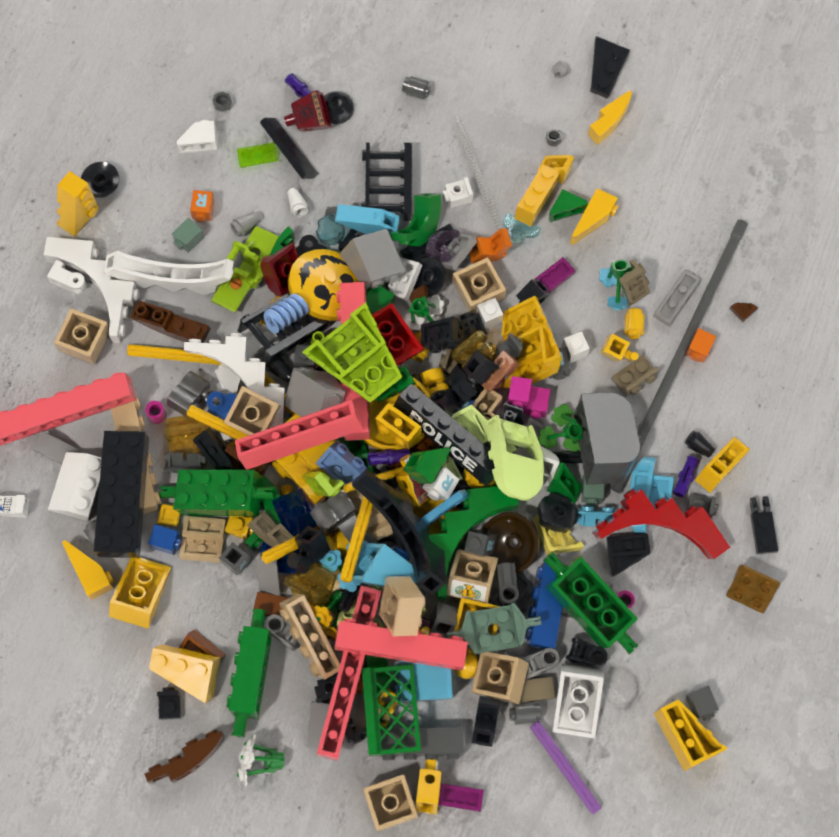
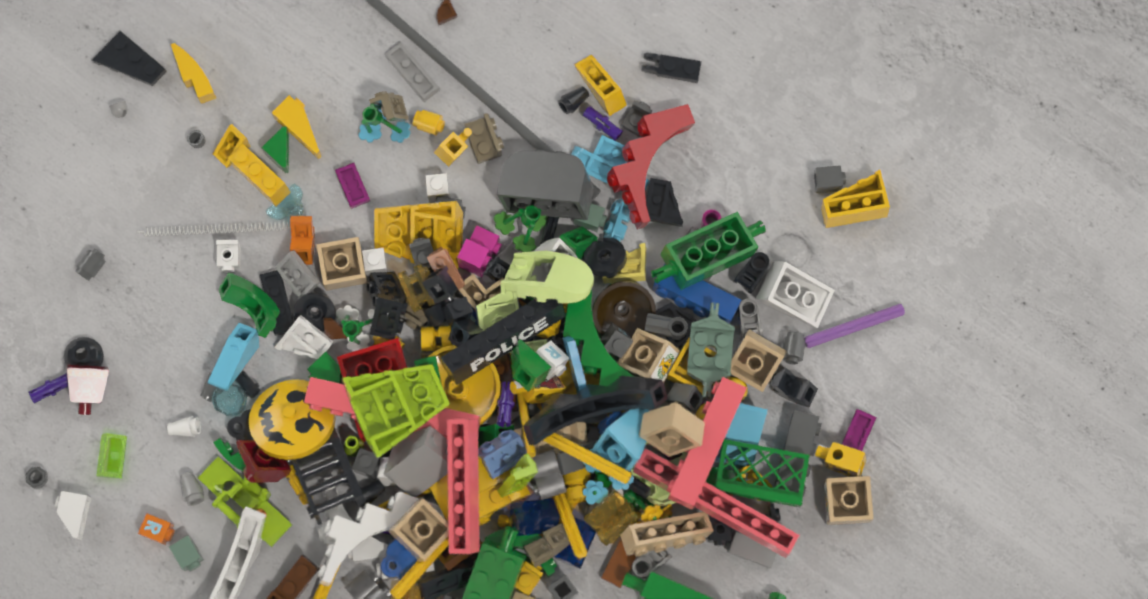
camera: 75 degrees left, 5 degrees up
(268, 576) = (592, 563): light grey slope -> none
(285, 312) = (317, 468): light blue piece -> none
(288, 148) = (117, 419): black tile -> none
(312, 548) = (579, 505): black brick -> none
(373, 259) = (283, 362): light grey slope -> none
(398, 426) = (481, 383): yellow brick -> none
(404, 173) = (187, 303): black fence -> none
(436, 241) = (277, 292): clear purple helmet -> none
(534, 288) = (365, 209): black brick -> none
(538, 690) = (775, 328): dark tan slope -> none
(700, 345) = (472, 65): orange brick -> none
(752, 588) = (732, 96): pearl gold bracket -> none

